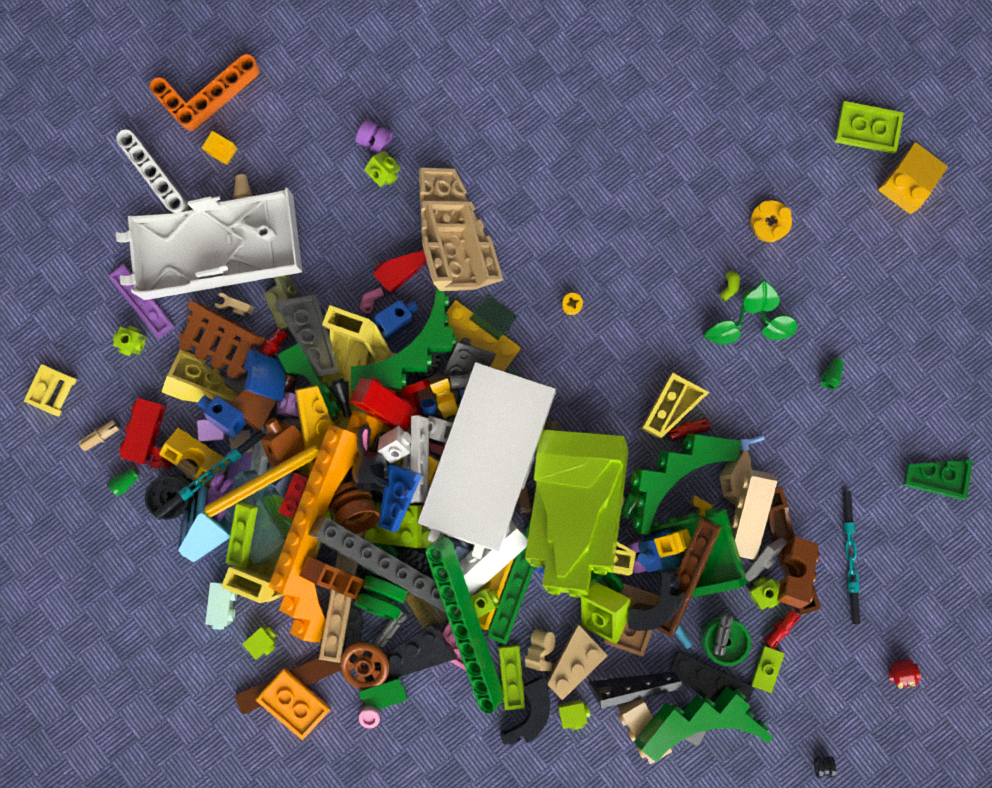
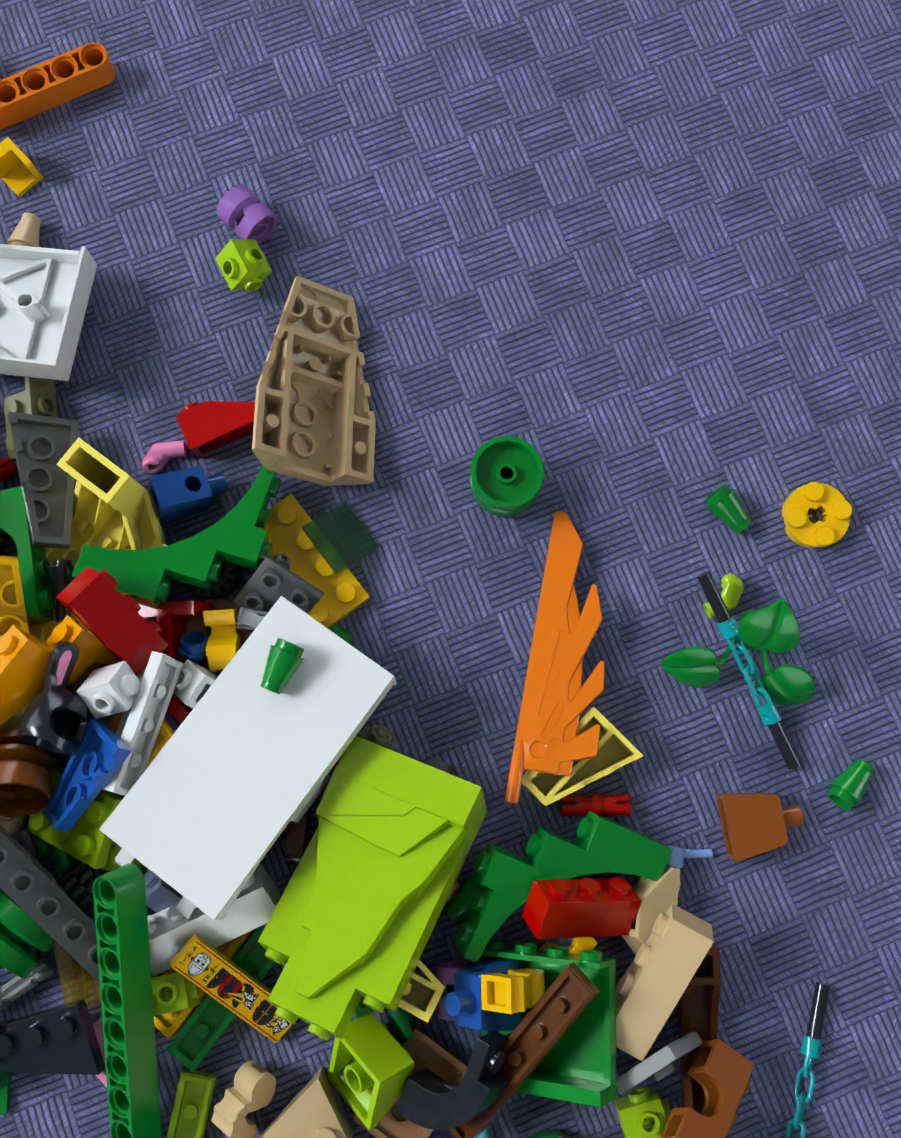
camera: 10 degrees right, 5 degrees down
(490, 400) = (281, 665): none -> green cone
(516, 591) = (229, 986): none -> tile
(572, 307) = (469, 558): yellow wheel -> none
(582, 240) = (514, 459): none -> green wheel
(644, 360) = (553, 682): none -> orange animal
(698, 487) = (580, 908): none -> red brick
(717, 232) = (728, 508): none -> green cone
(774, 345) = (729, 628): none -> piece
(783, 412) = (755, 823): none -> dark orange torso

